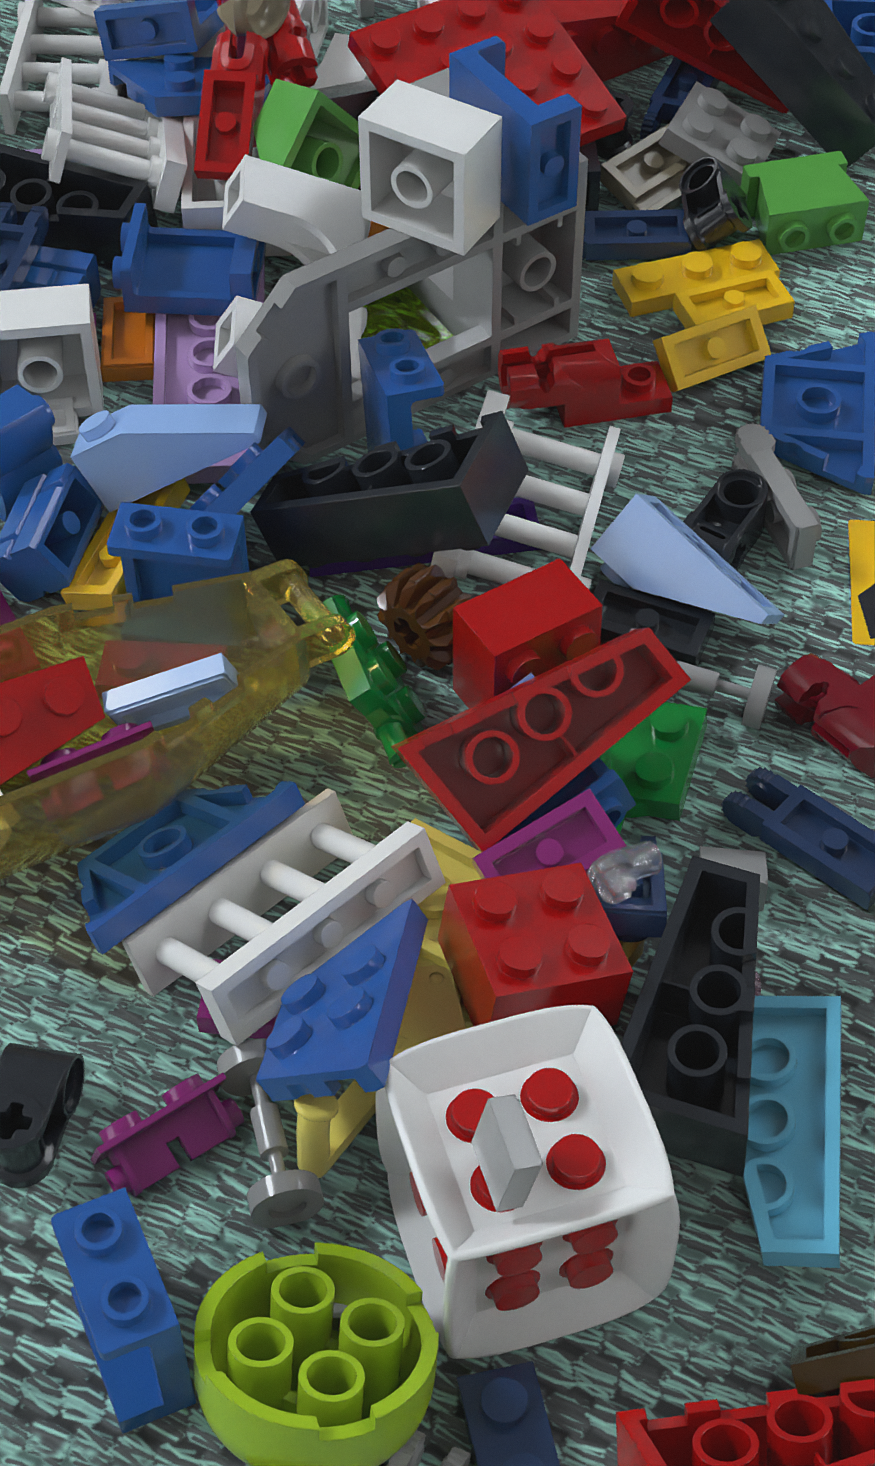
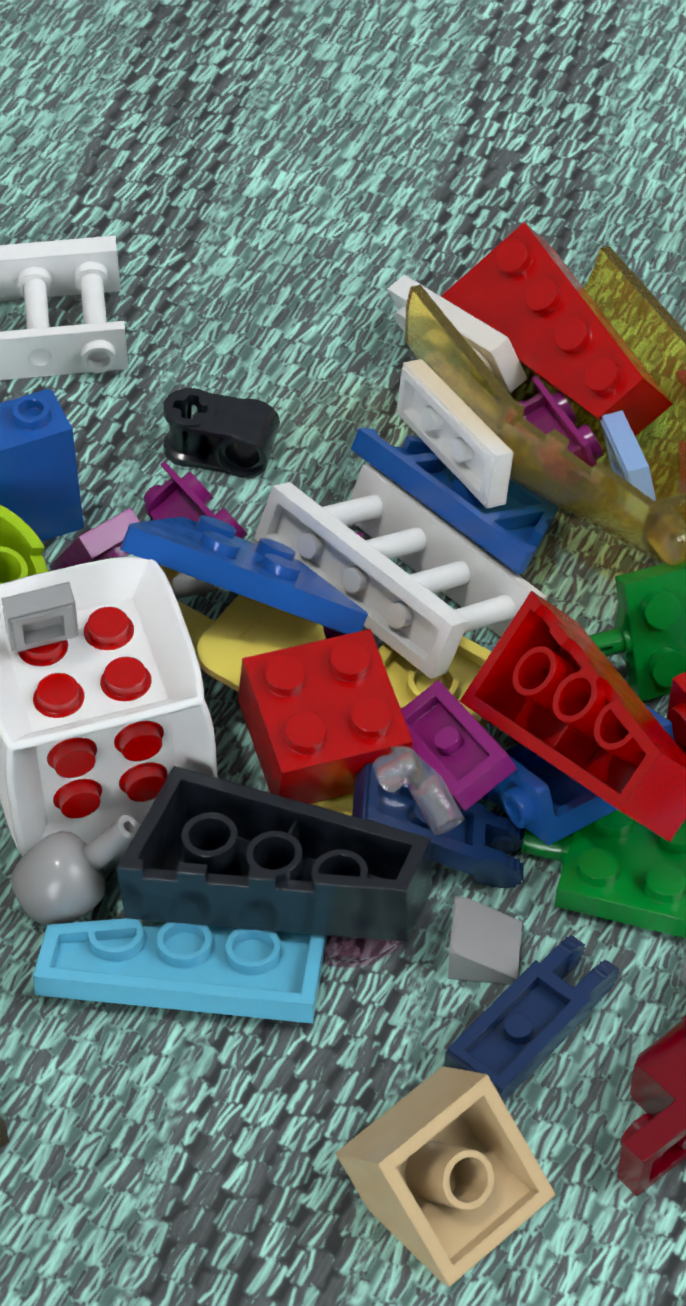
camera: 90 degrees right, 0 degrees up
(110, 842) = (454, 433): none -> white tile
(235, 1209) = (98, 543): none -> plate
(714, 1225) = (66, 876): none -> light grey piece

